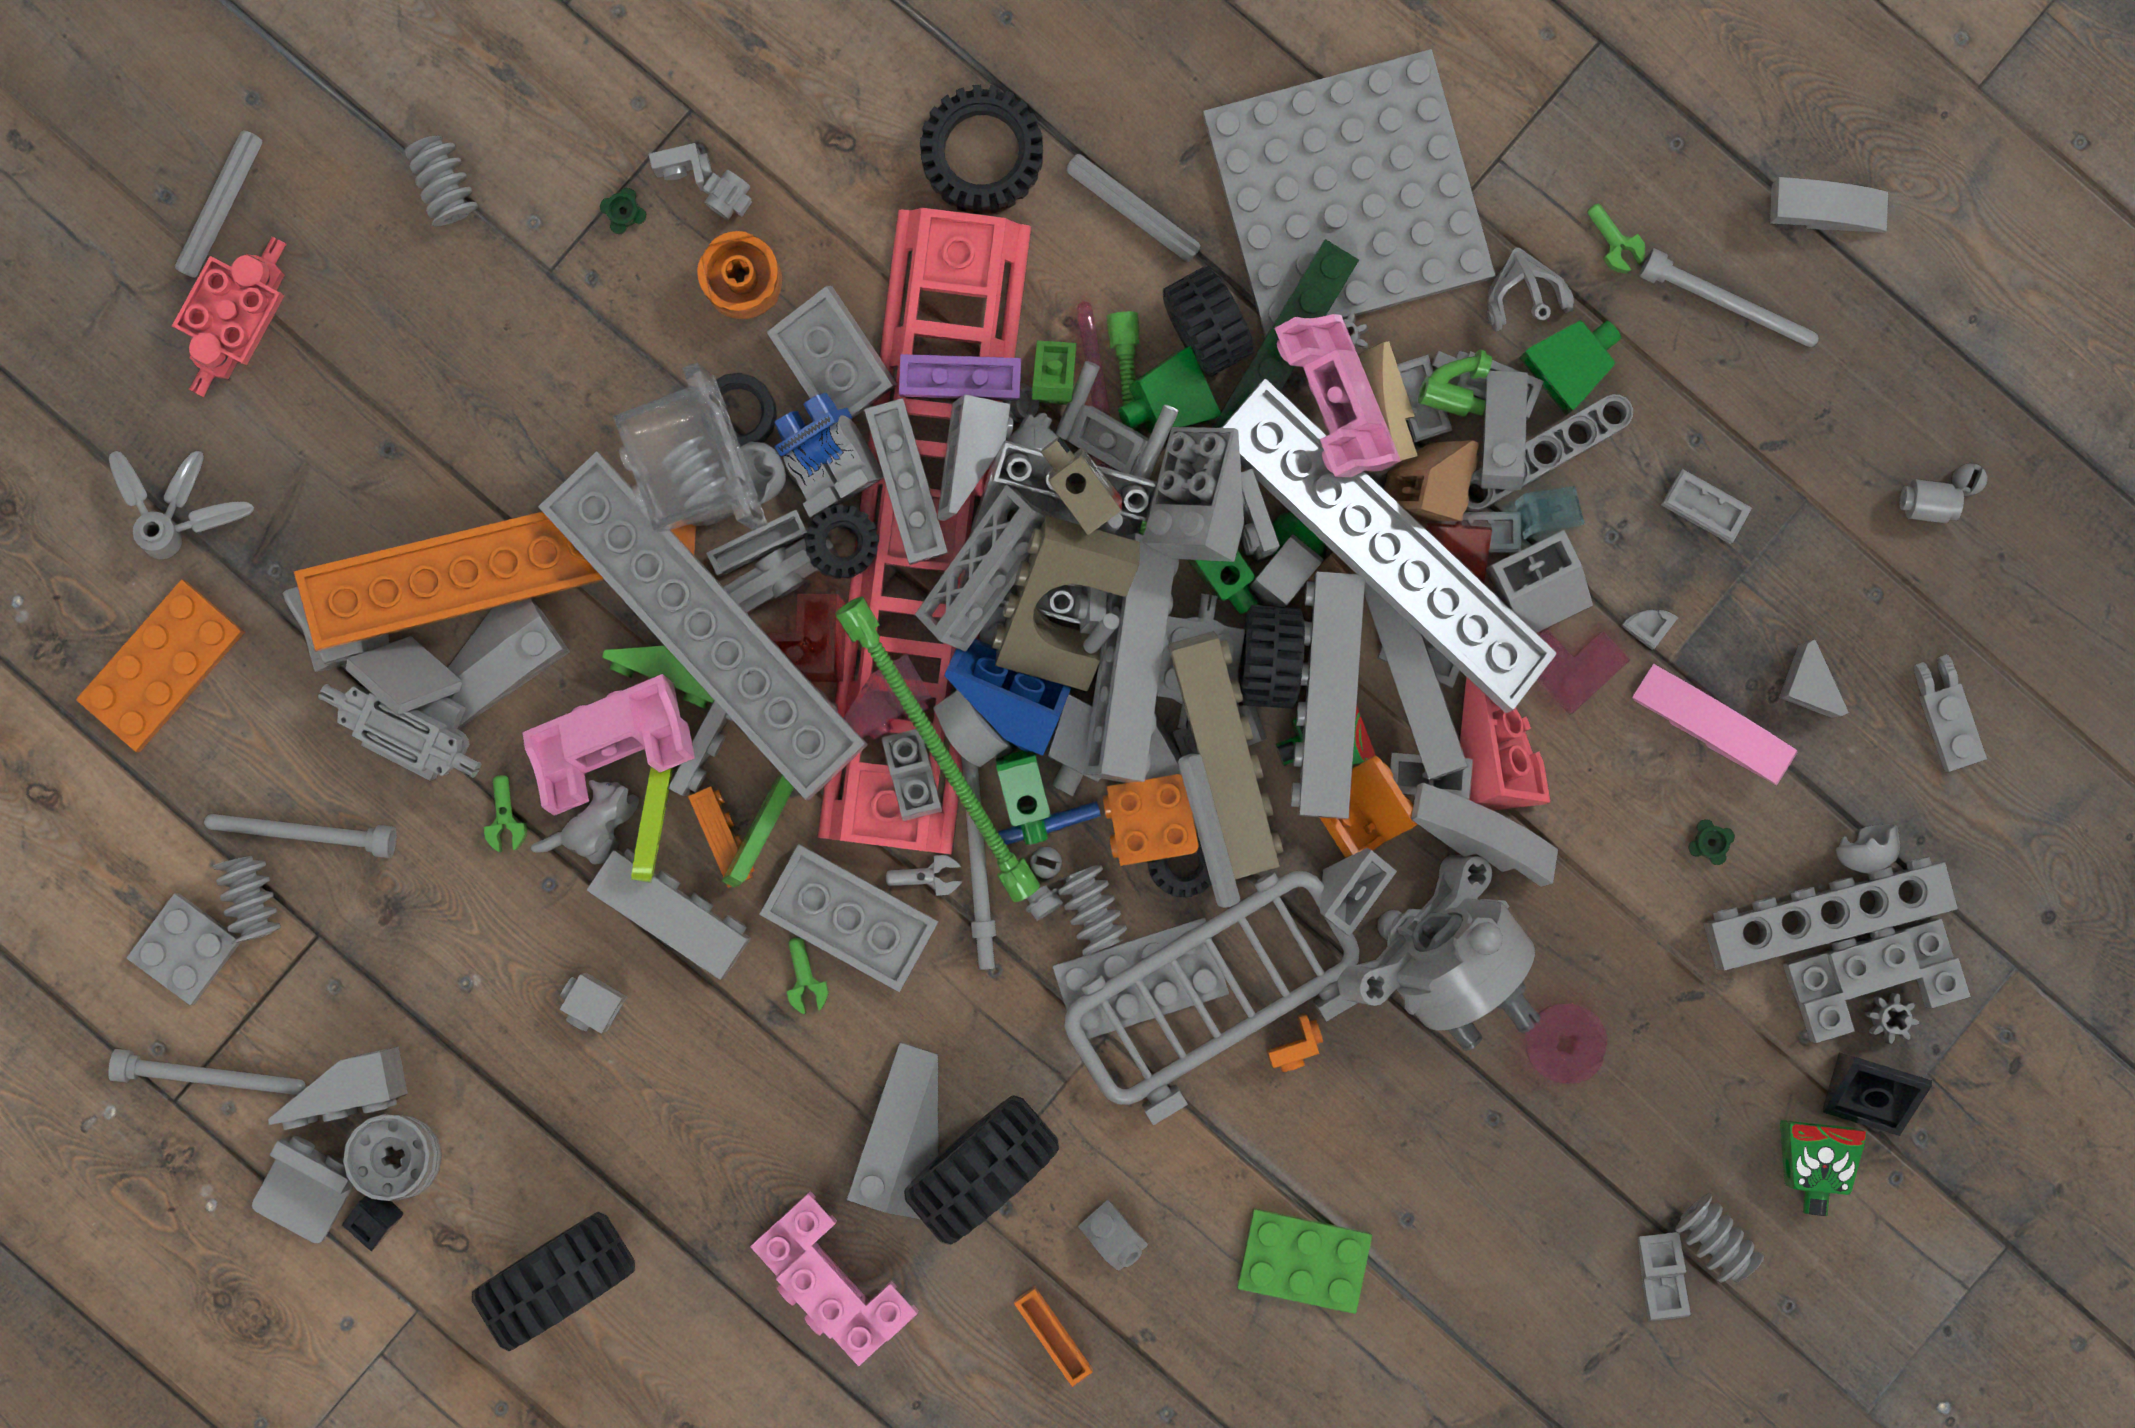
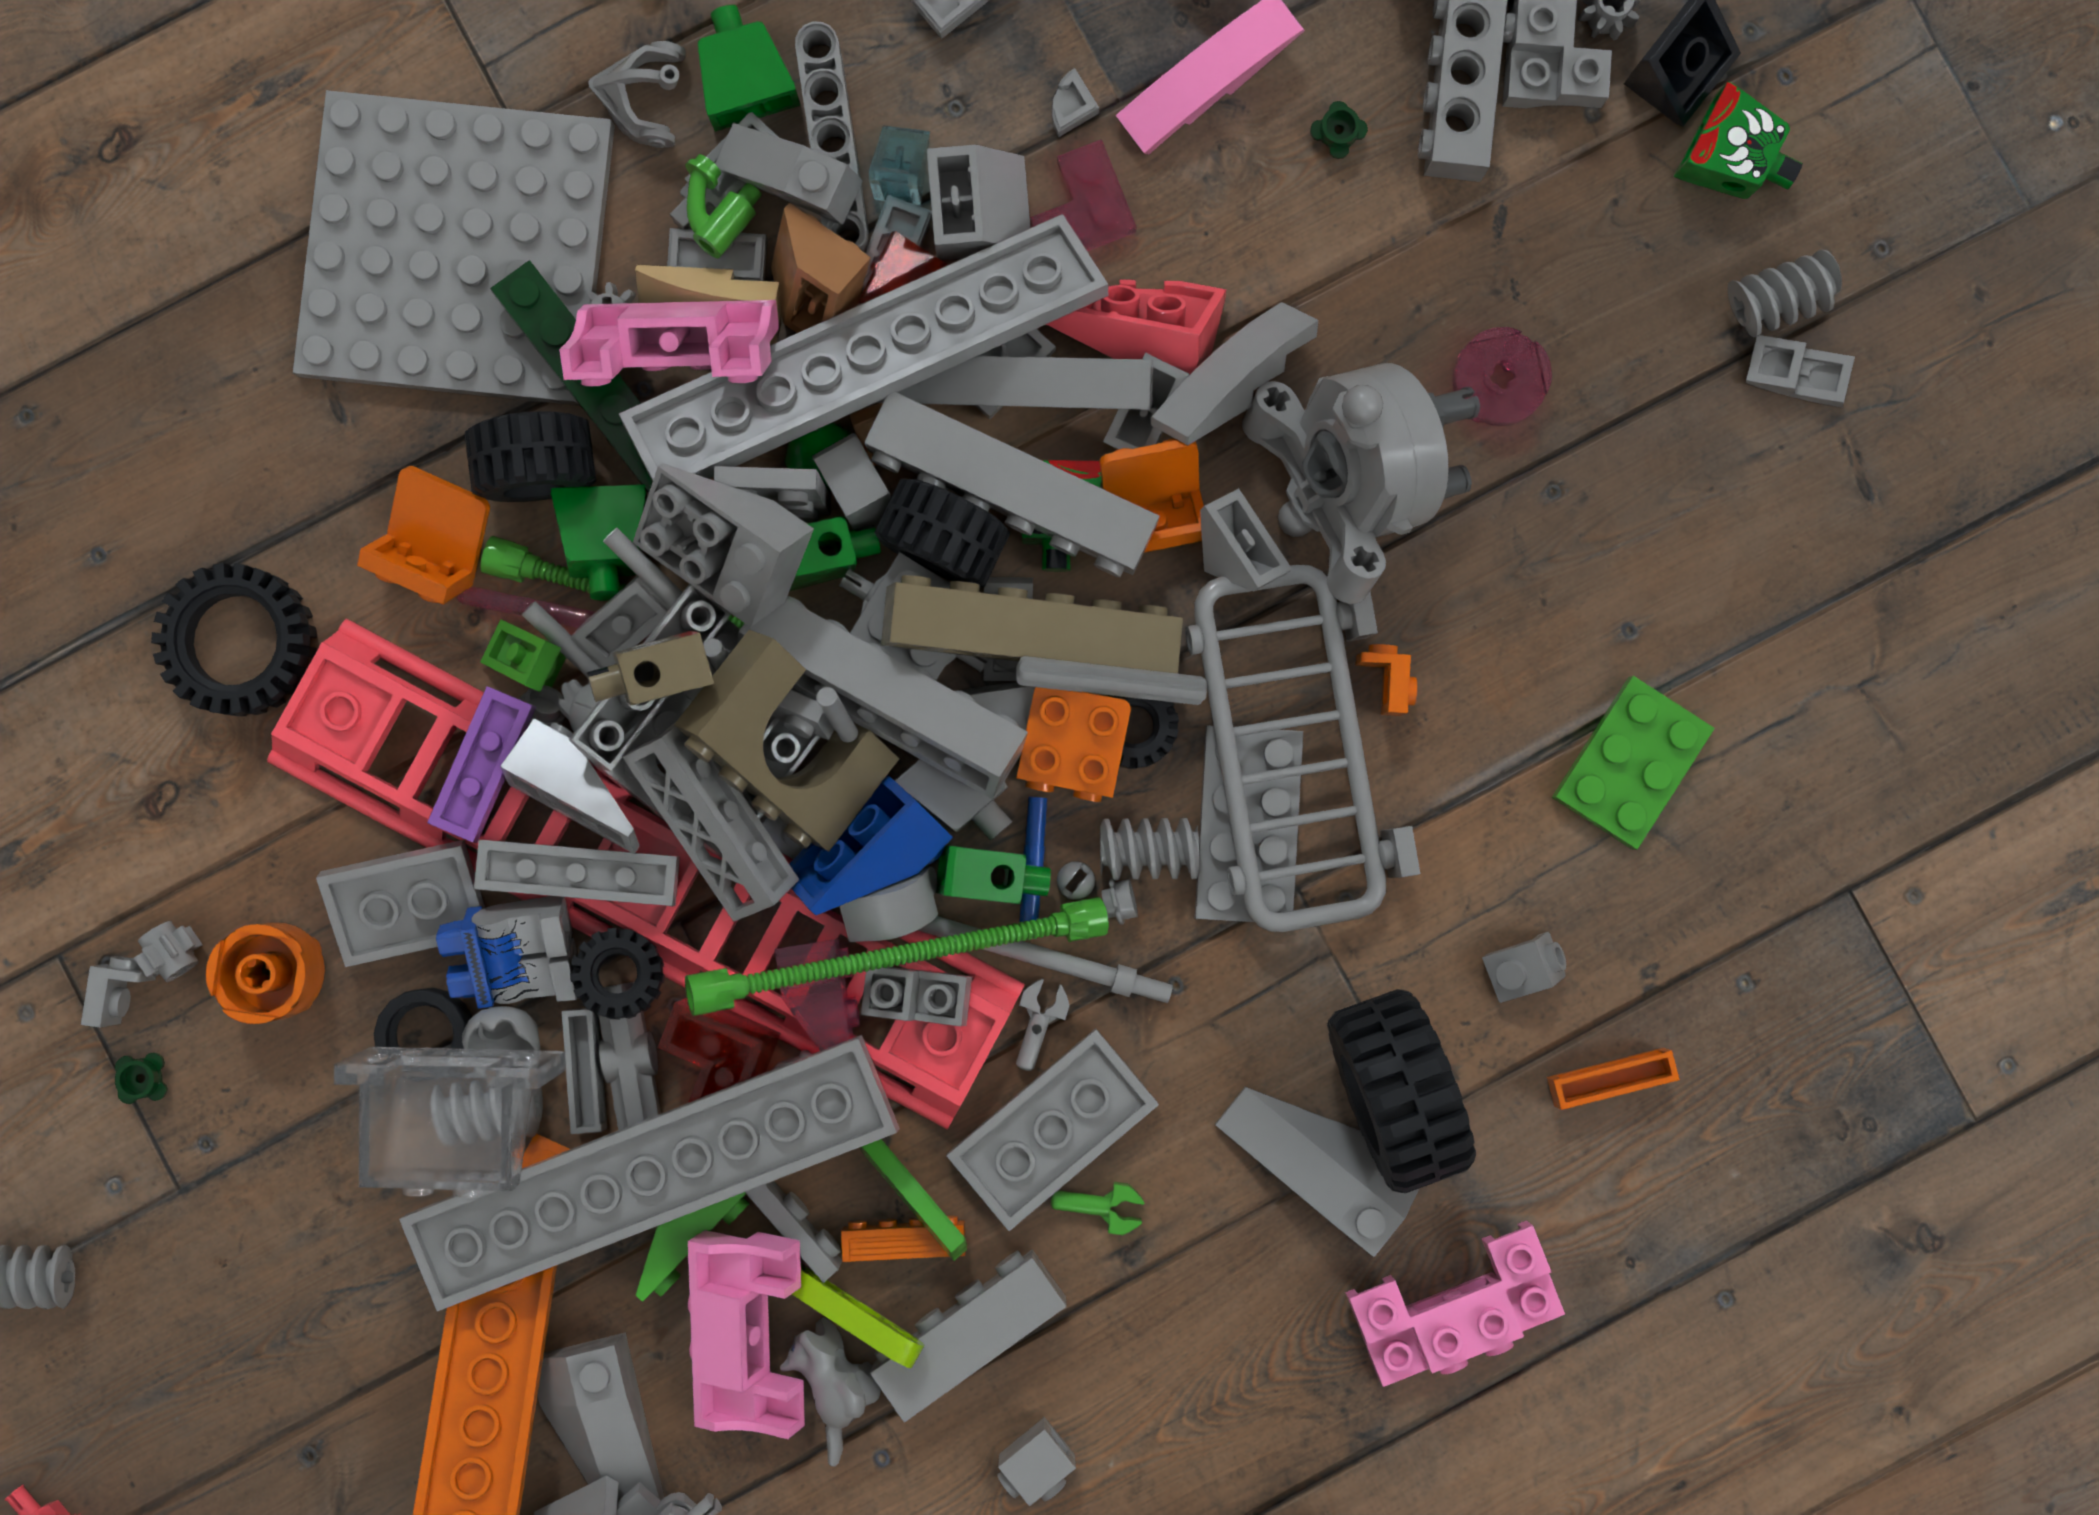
camera: 75 degrees left, 0 degrees up
(504, 817) = (786, 1482): bright green bar -> none
(1117, 267) = (430, 537): none -> orange bracket
(1133, 207) = (367, 497): light grey axle -> none

